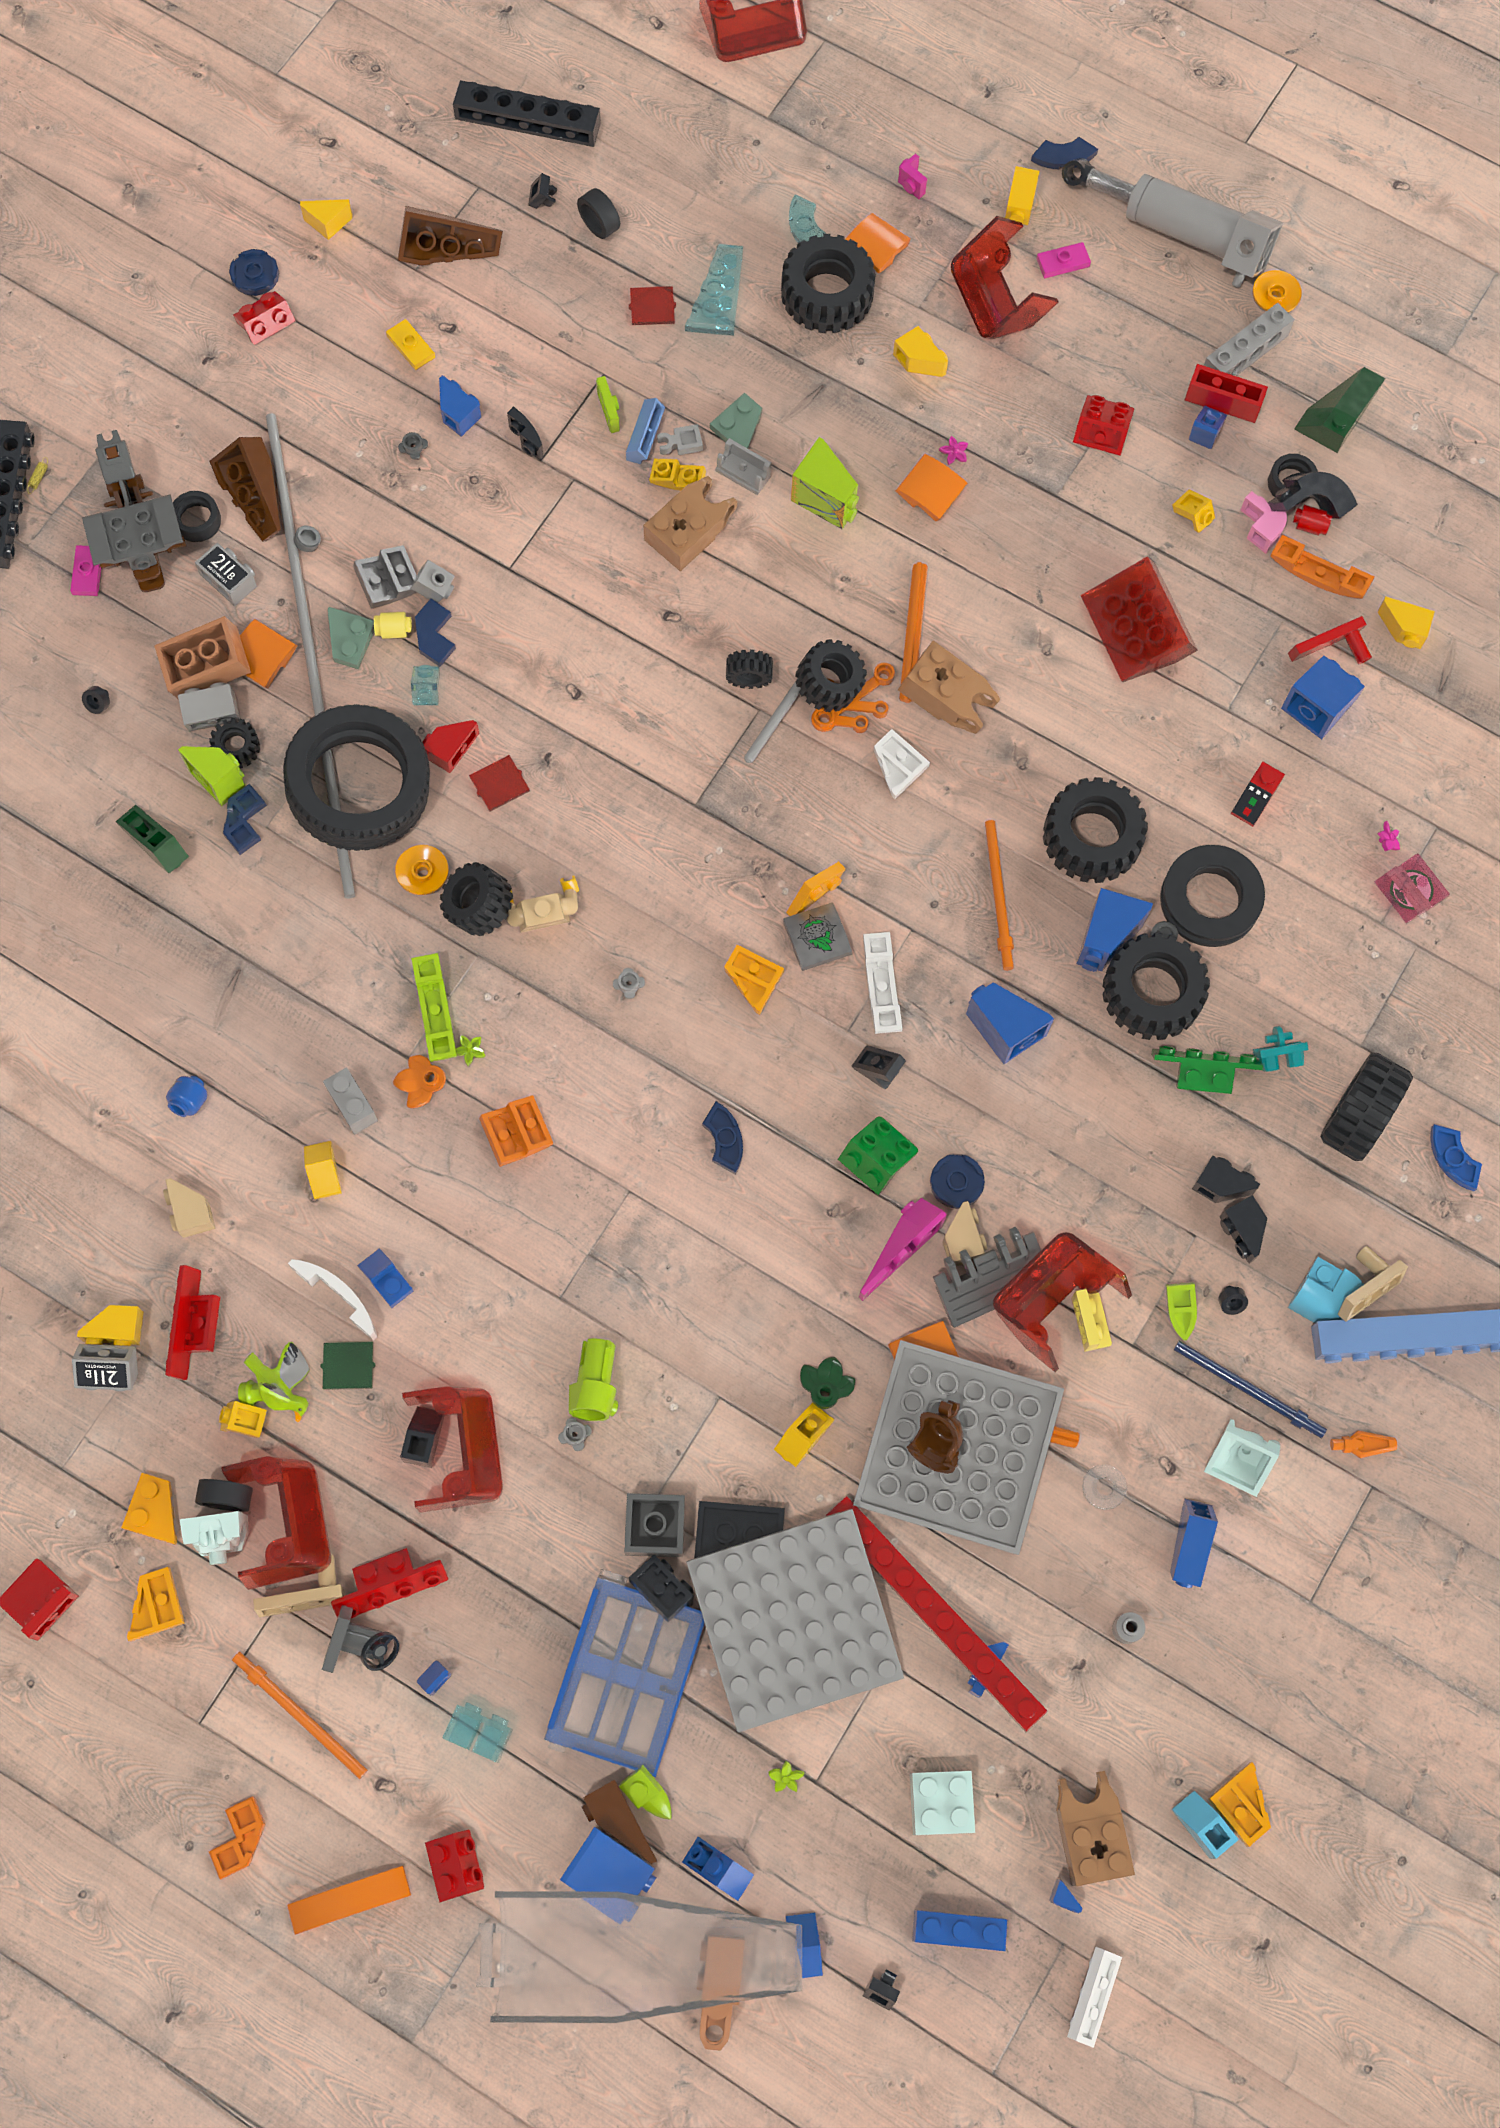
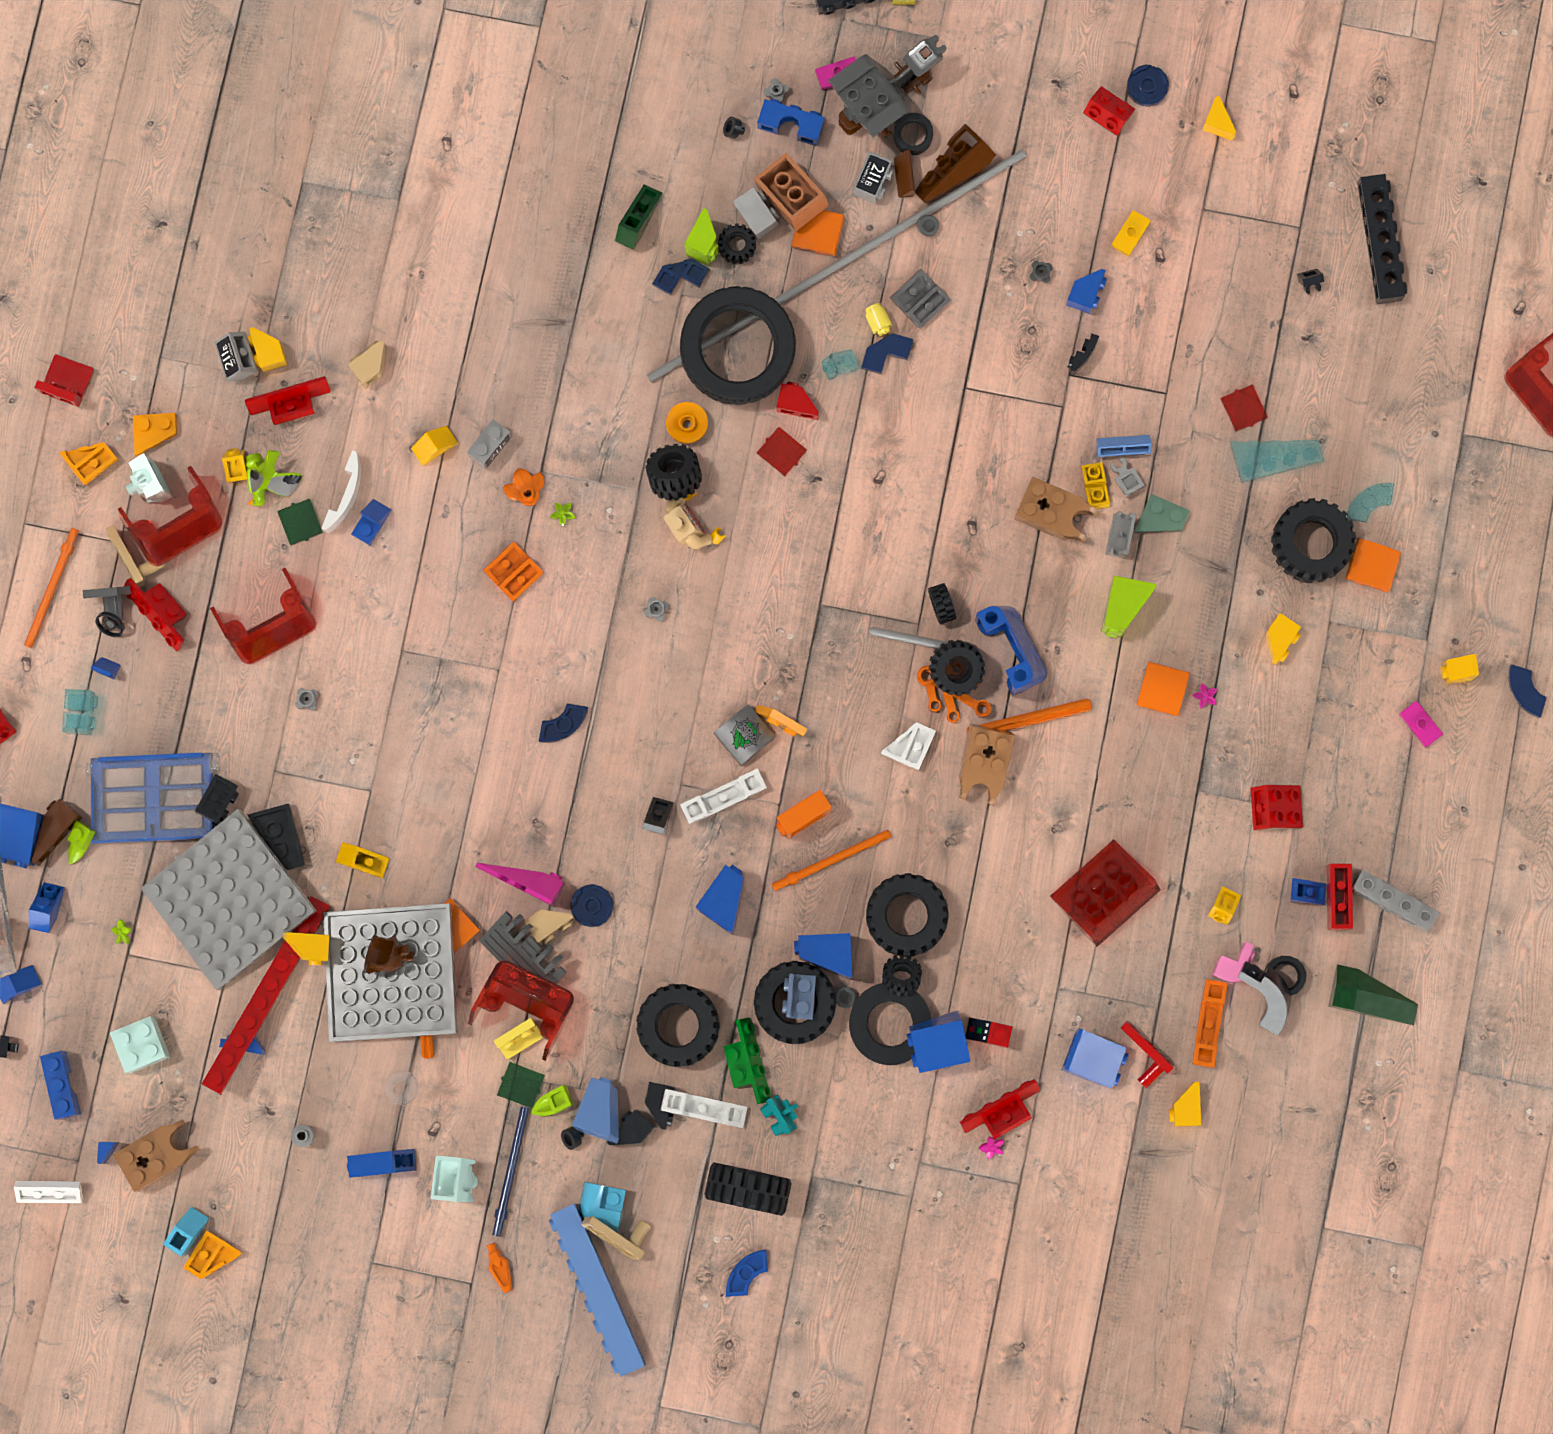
camera: 80 degrees right, 10 degrees up
(77, 646) = (775, 84): none -> light grey plate
(131, 618) = (775, 114): none -> blue arch
(186, 1096) = (451, 327): blue head -> none
(223, 1495) = (176, 475): black tyre -> none
(240, 540) = (904, 175): none -> reddish brown slope
(349, 637) = (858, 291): sand green wing -> none
(422, 1437) = (263, 593): black slope -> none
(433, 582) = (924, 336): light grey brick -> none
(434, 1007) = (582, 476): lime slope -> none
(439, 238) = (1235, 215): reddish brown wedge -> none
(592, 1394) = (337, 699): lime piece -> none
(598, 213) = (1304, 333): black tyre -> none
(608, 403) = (1136, 408): lime plate -> none
(654, 1525) = (259, 778): dark grey brick -> none
(753, 976) = (694, 699): light orange wing -> none
(829, 1379) = (409, 863): dark green plate -> none
(861, 605) = (1007, 619): none -> blue windscreen
(877, 1154) = (590, 840): green bracket -> none
(894, 1532) = (309, 946): none -> yellow slope
(911, 178) = (1443, 574): dark pink bracket -> none
(938, 898) = (803, 814): none -> orange window
(984, 287) = (1366, 671): clear red windscreen -> none
(1147, 1341) = (520, 1085): none -> clear green piece
(1157, 968) = (800, 996): none -> sand blue bracket
(1157, 1098) = (648, 1025): none -> black tyre
(1173, 865) = (899, 985): none -> black tyre
(1189, 218) = (1487, 862): light grey piece -> none
(1214, 1253) = (599, 1111): none -> medium blue slope
(1247, 1132) = (703, 1108): none -> white slope
(1258, 839) = (938, 1043): none -> blue slope
(1277, 284) = (1468, 908): light orange dish -> none
(1312, 520) = (1251, 1003): red brick -> none
(1356, 809) = (1003, 1113): none -> red bracket
(1412, 888) = (956, 1178): clear pink slope -> none

